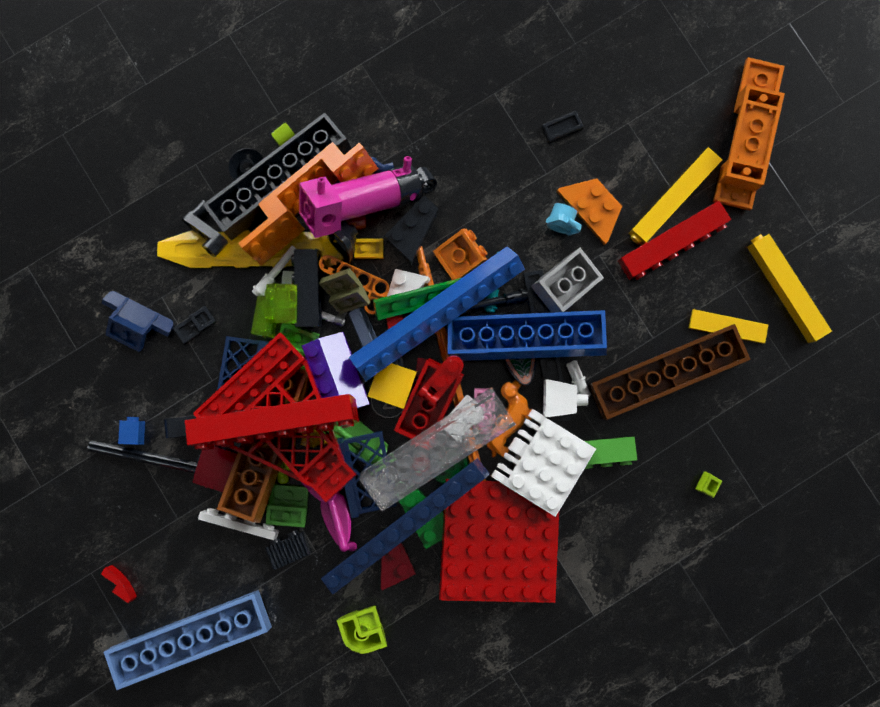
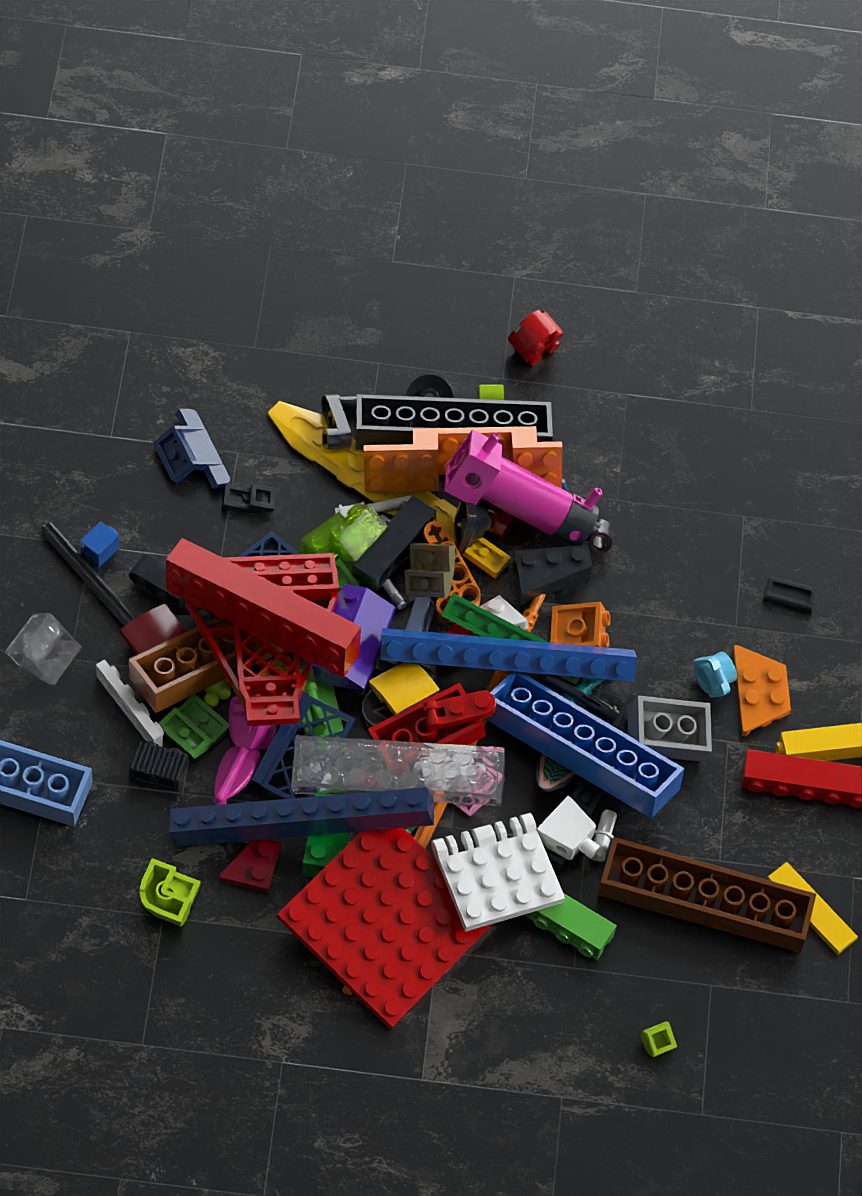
camera: 30 degrees right, 25 degrees down
(157, 529) = (44, 648): none -> clear slope
(277, 70) = (536, 336): none -> red brick
(518, 410) = (518, 804): orange animal -> none

